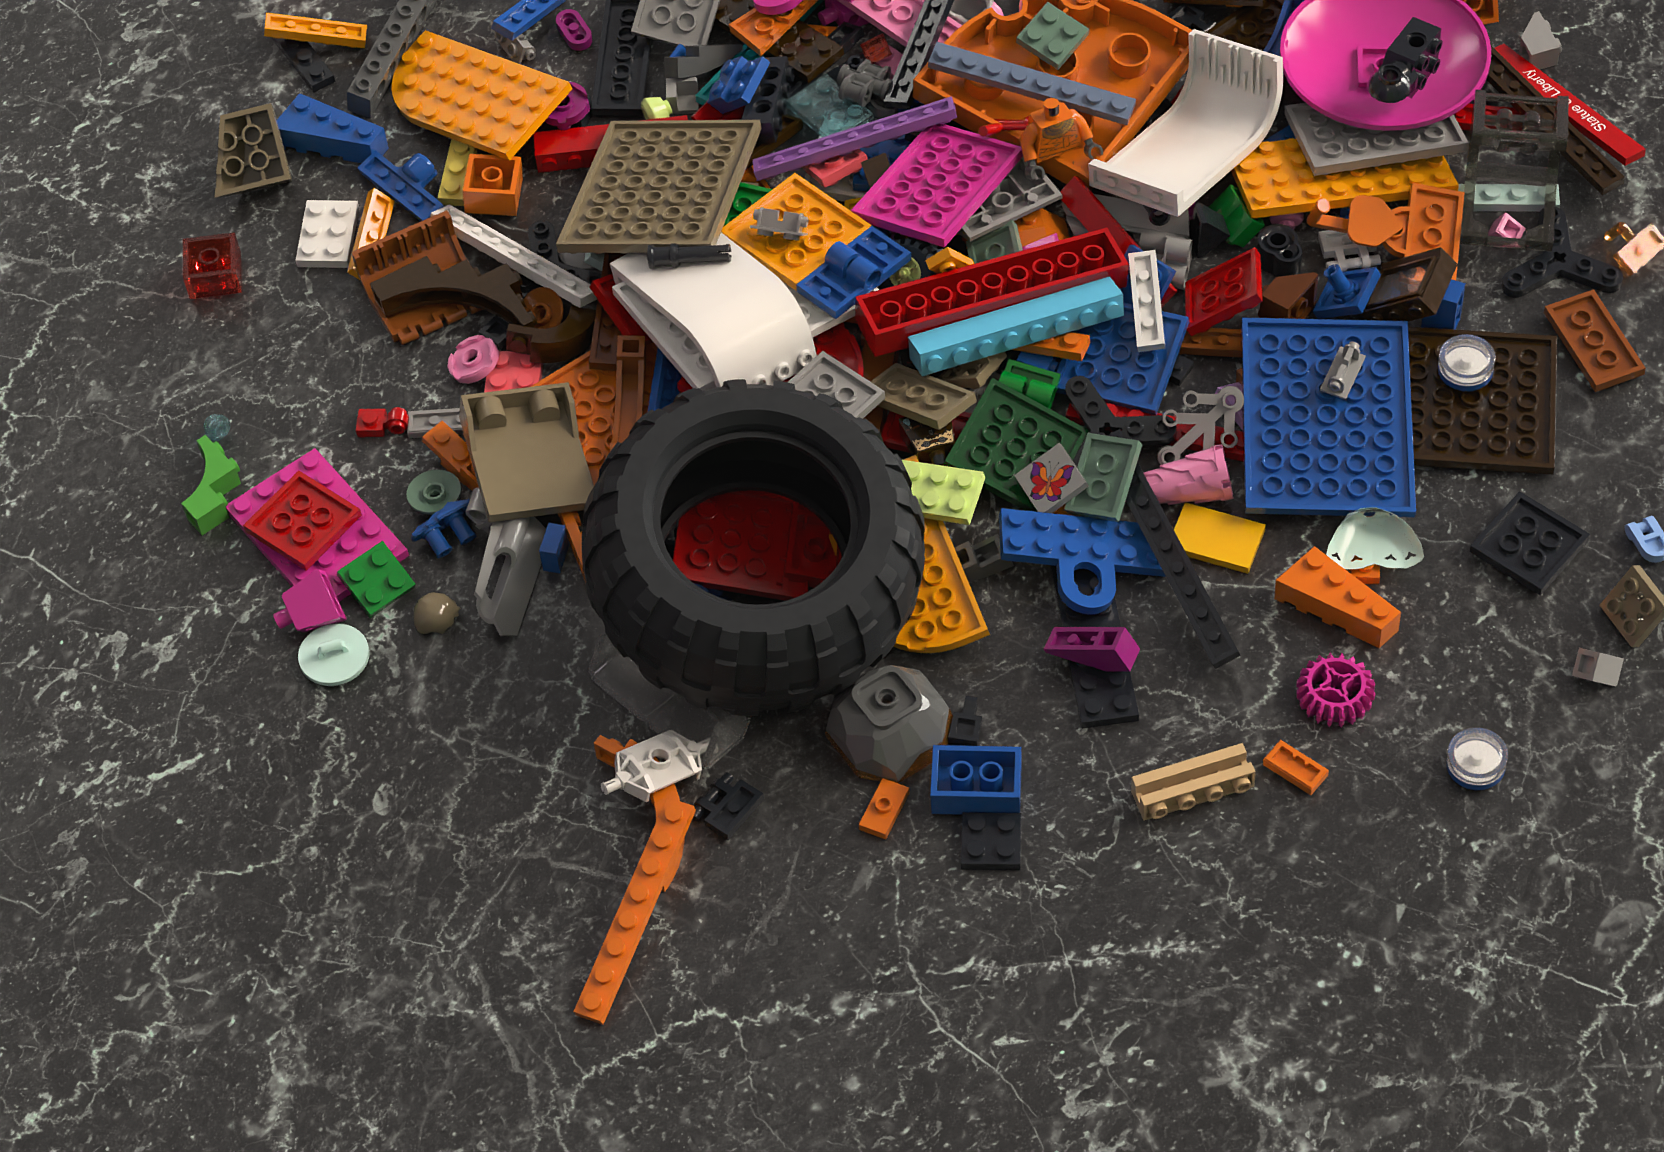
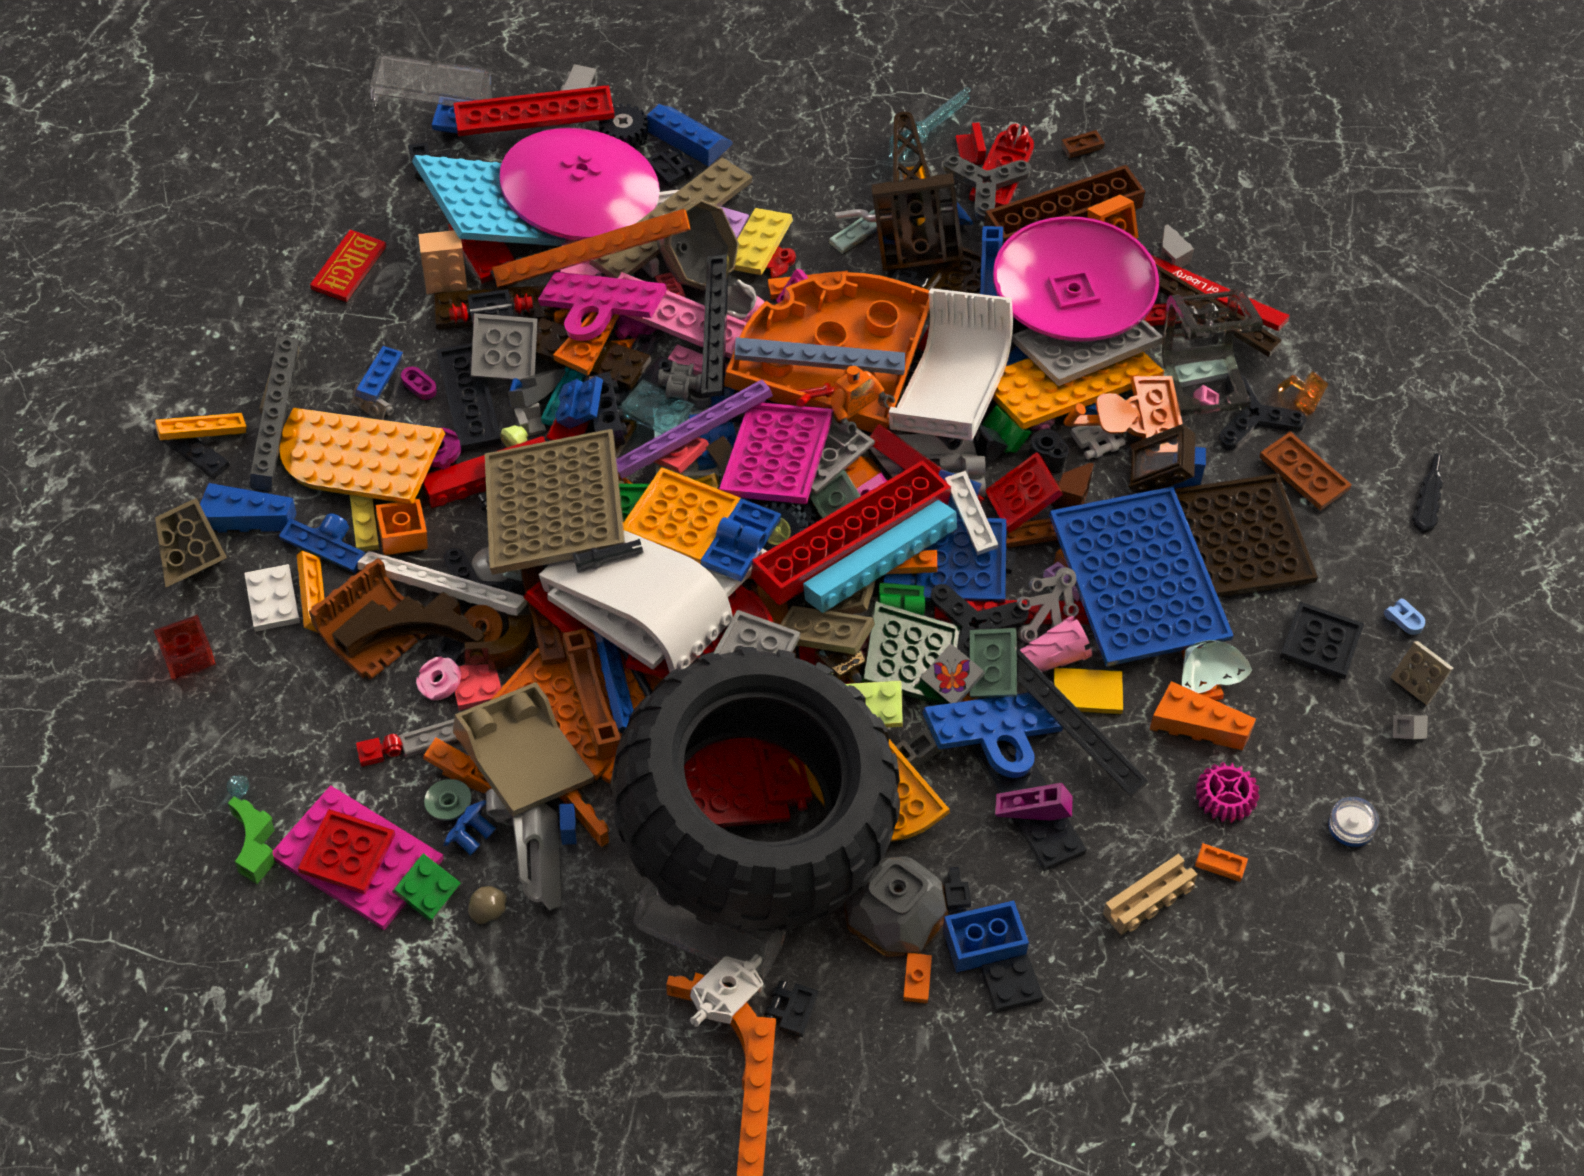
camera: 25 degrees left, 0 degrees up
(310, 604) = (380, 923): dark pink torso -> none
(333, 654) = (412, 961): light aqua shield -> none
(768, 223) = (662, 514): light grey hinge -> none
(876, 48) = (674, 351): clear red tile -> none
(947, 260) = (812, 515): light orange plate -> none
(1052, 35) = (822, 314): sand green plate -> none
(1343, 371) = (1142, 536): light grey hinge -> none
(1346, 291) = (1109, 470): blue plate -> none
(1407, 63) = (1105, 281): black brick -> none
(1466, 362) = (1225, 509): clear piece -> none

